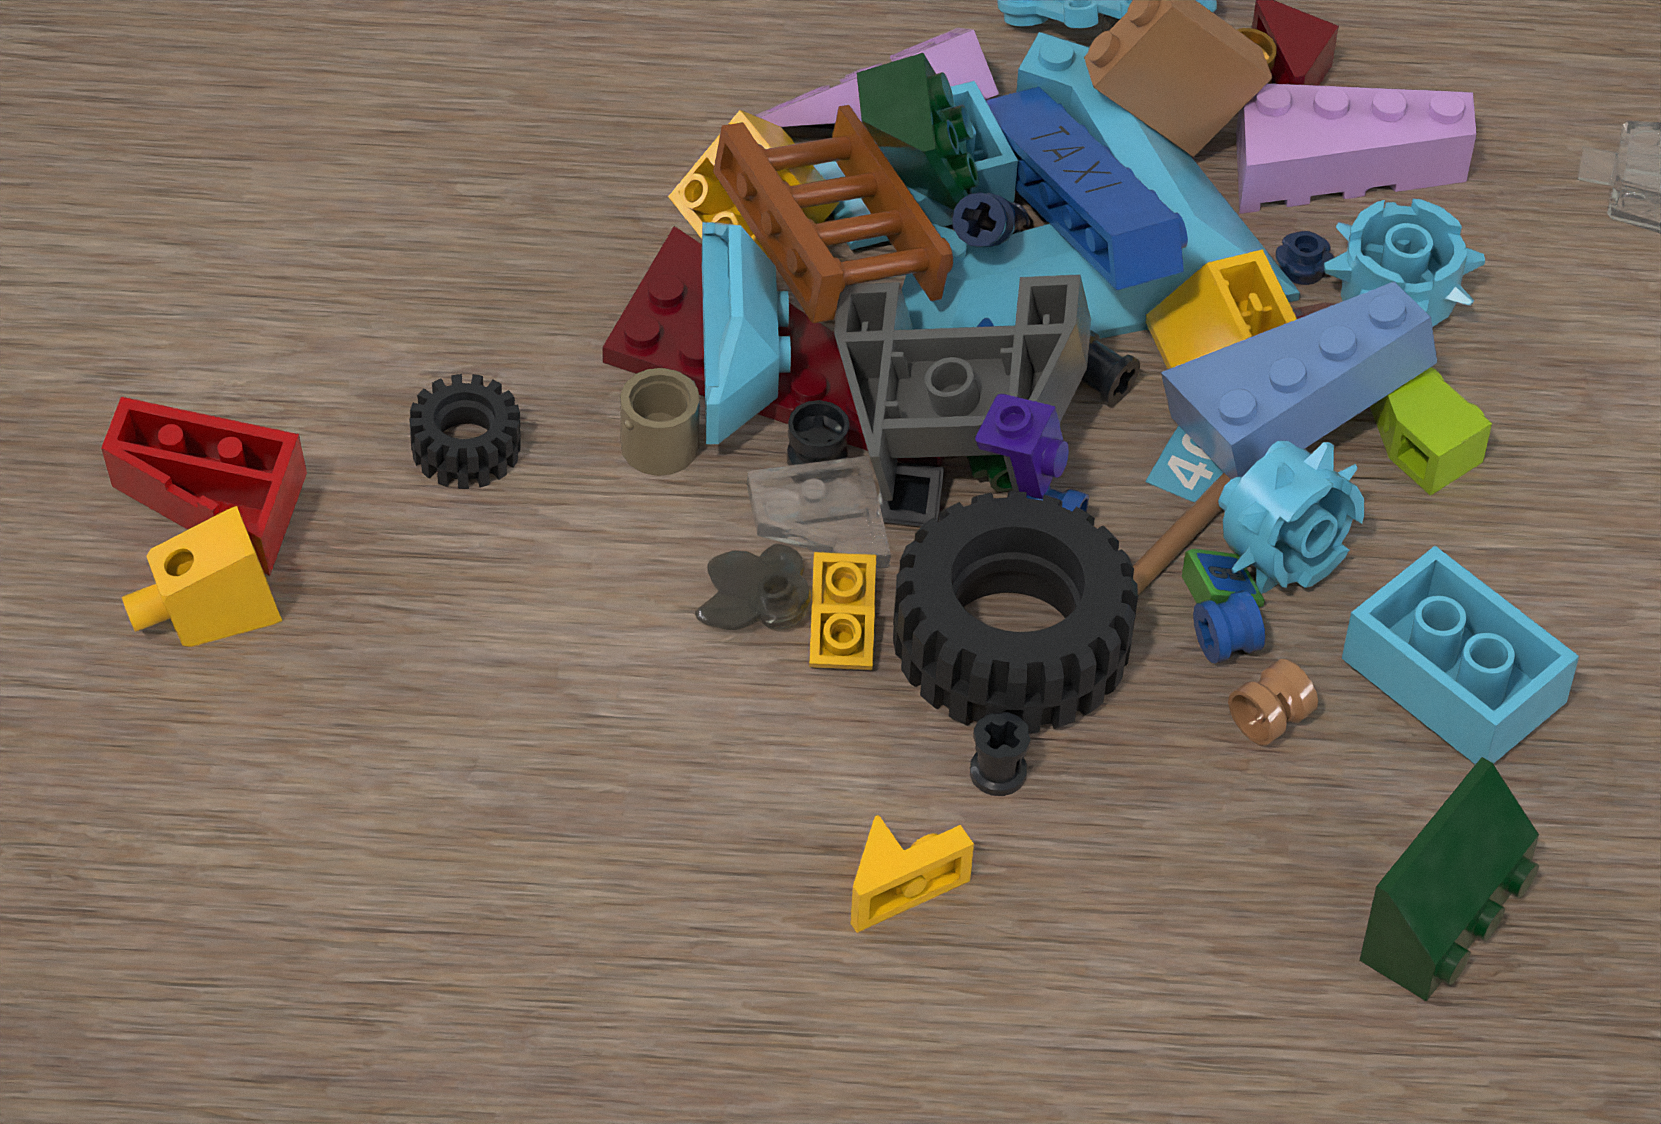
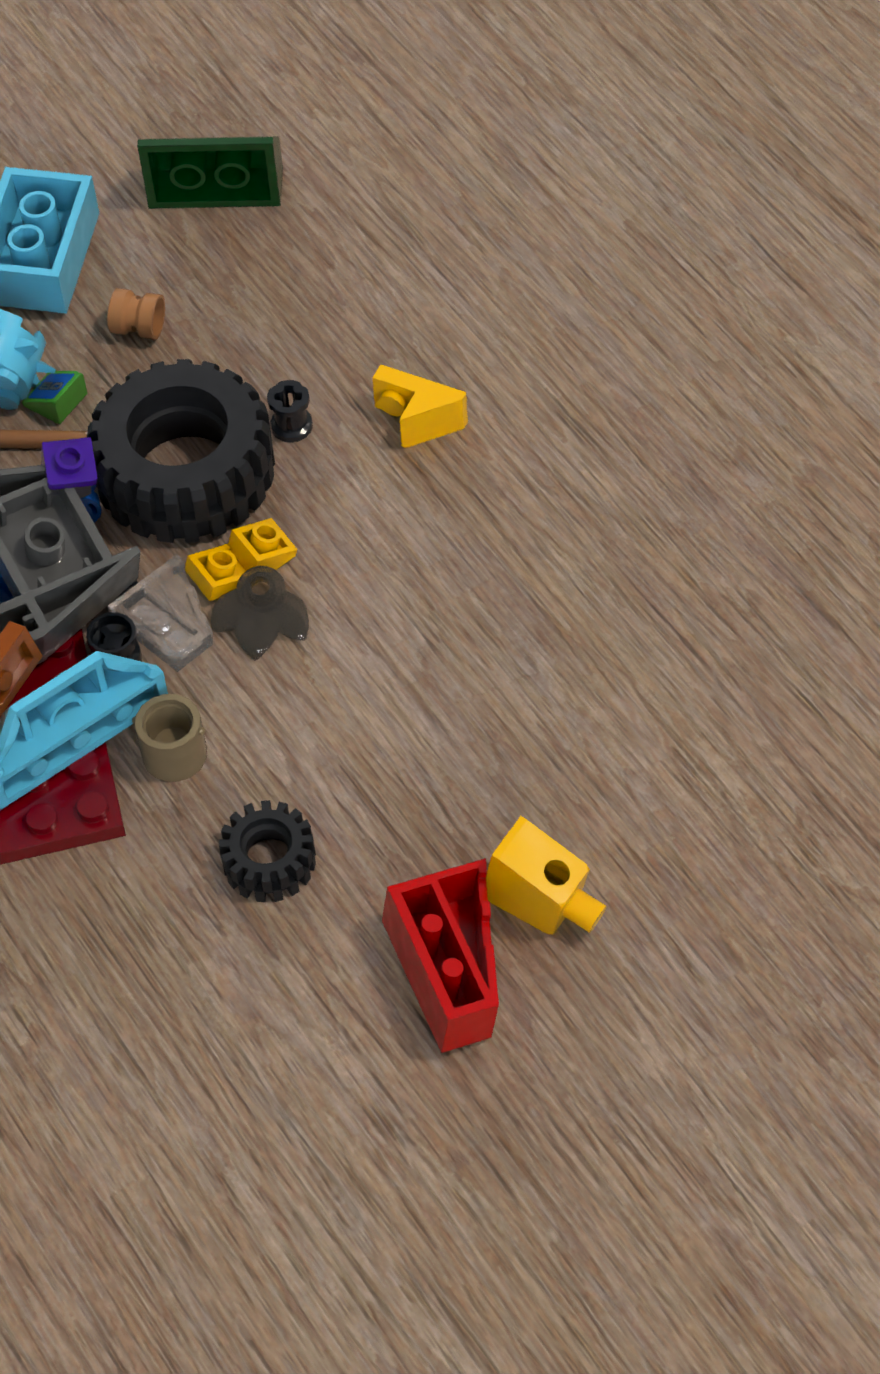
camera: 120 degrees left, 5 degrees up
(1229, 626) = (96, 363): blue wheel -> none

